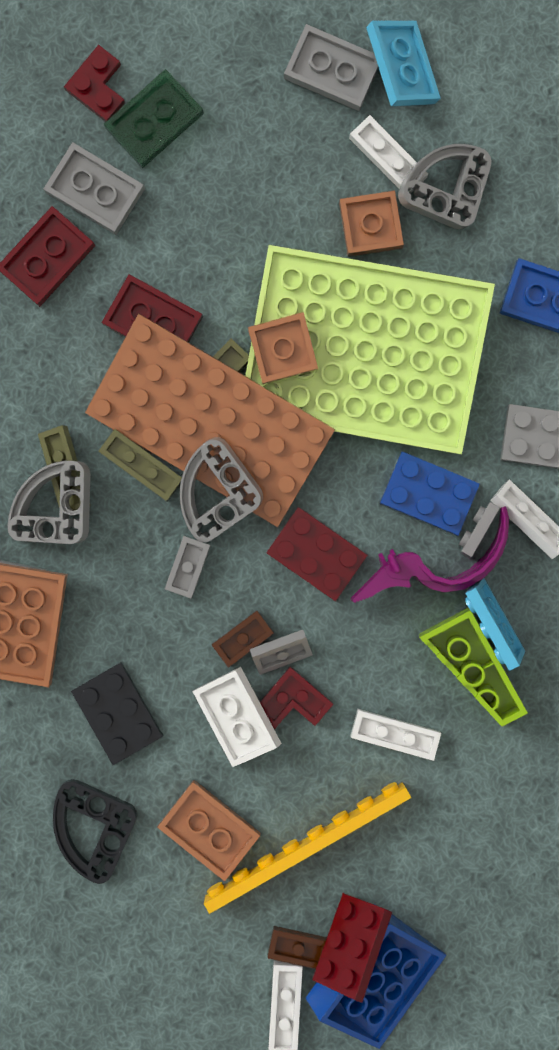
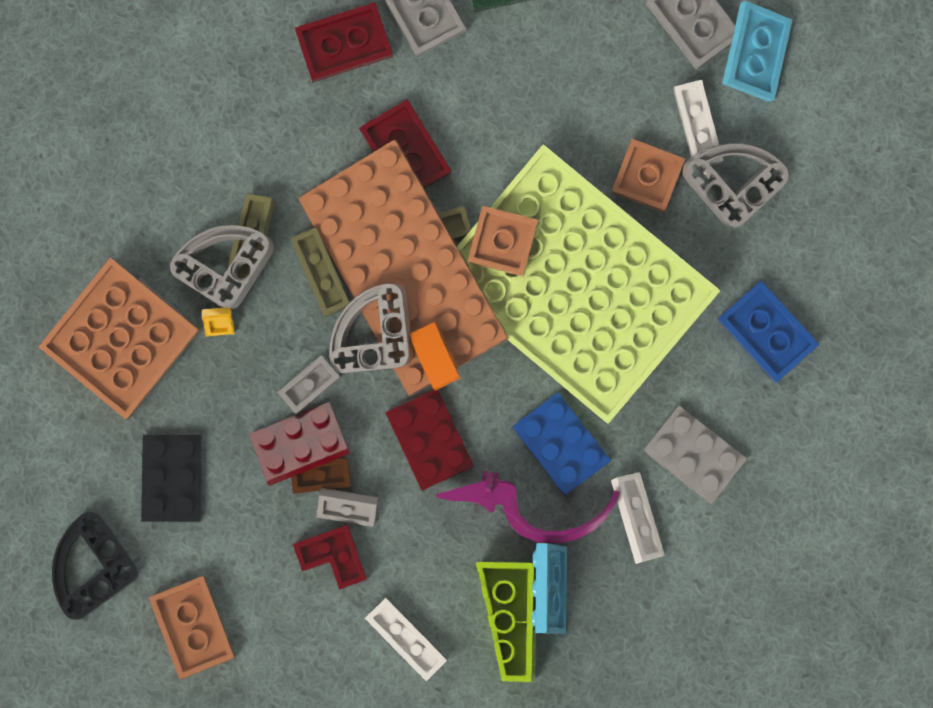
camera: 30 degrees right, 5 degrees down
(78, 558) = (218, 321): none -> yellow tile
(209, 622) = (299, 443): none -> plate
(237, 717) = (274, 540): white plate -> none
(282, 481) = (434, 356): none -> orange slope
(296, 851) = (282, 690): yellow plate -> none
(483, 519) = (573, 505): light grey plate -> none

